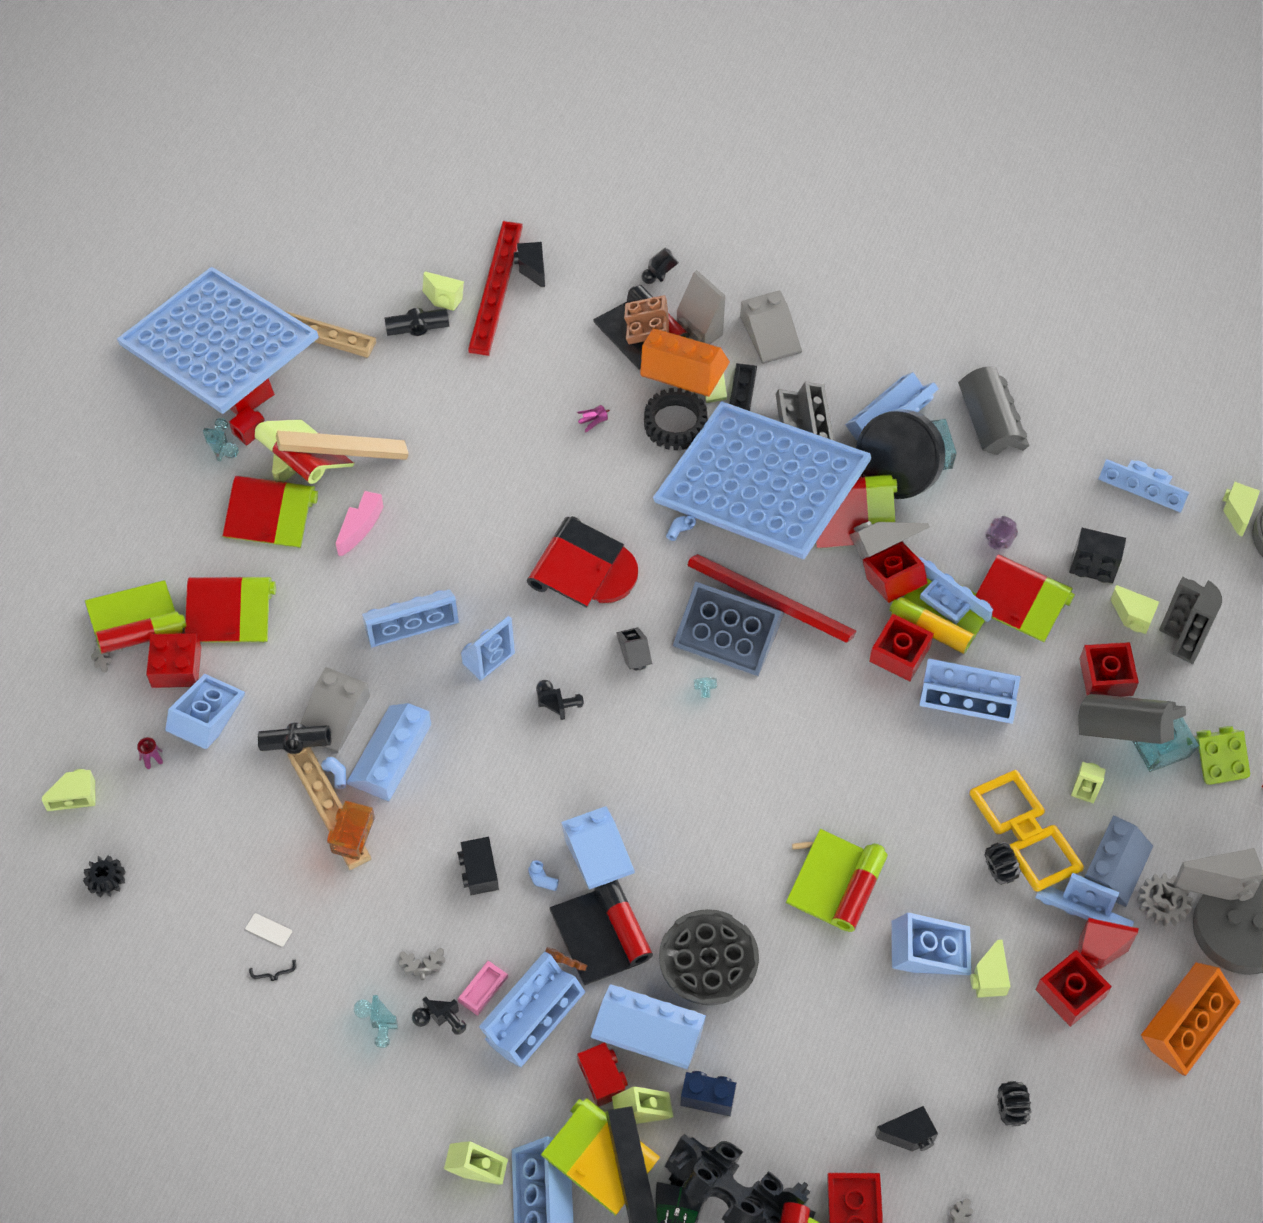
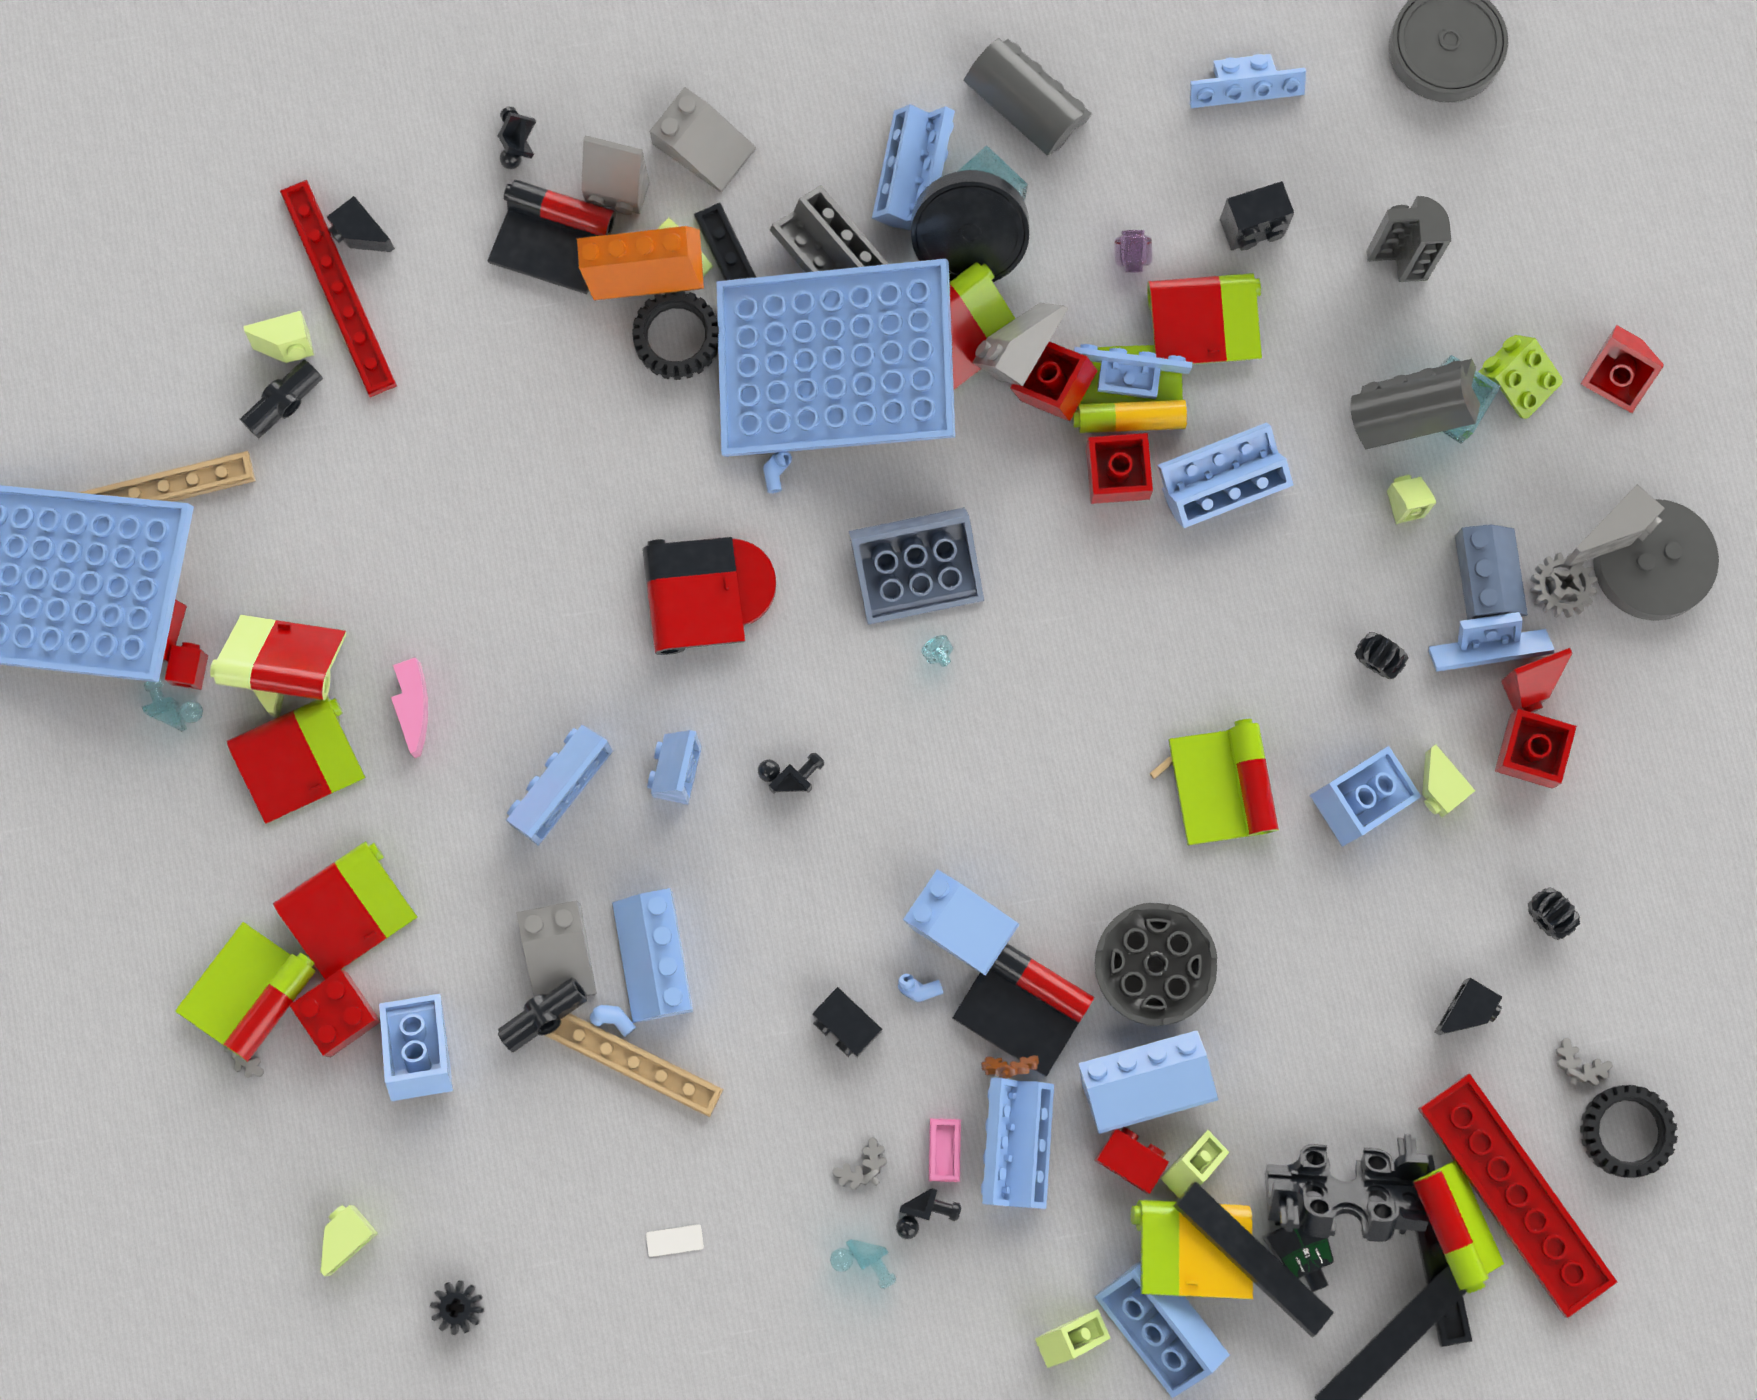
camera: 35 degrees left, 20 degrees up
(147, 748) = (392, 1136): piece -> none
(270, 975) = (721, 1283): black piece -> none
(341, 445) = (324, 627): tan tile -> none
(351, 830) = (685, 1078): clear orange brick -> none
(597, 414) = (581, 385): flat silver piece -> none
(634, 648) = (831, 656): slope -> none
(644, 316) = (554, 225): nougat slope -> none
(708, 1093) = (1251, 1108): dark blue brick -> none
(772, 598) = (937, 496): red tile -> none
(1026, 830) = (1378, 597): yellow bar -> none
(1109, 669) = (1352, 352): red brick -> none
(1134, 609) = (1332, 255): yellowish green slope -> none
(1191, 1017) = (1663, 700): orange slope -> none
(1240, 505) = (1366, 48): yellowish green slope -> none

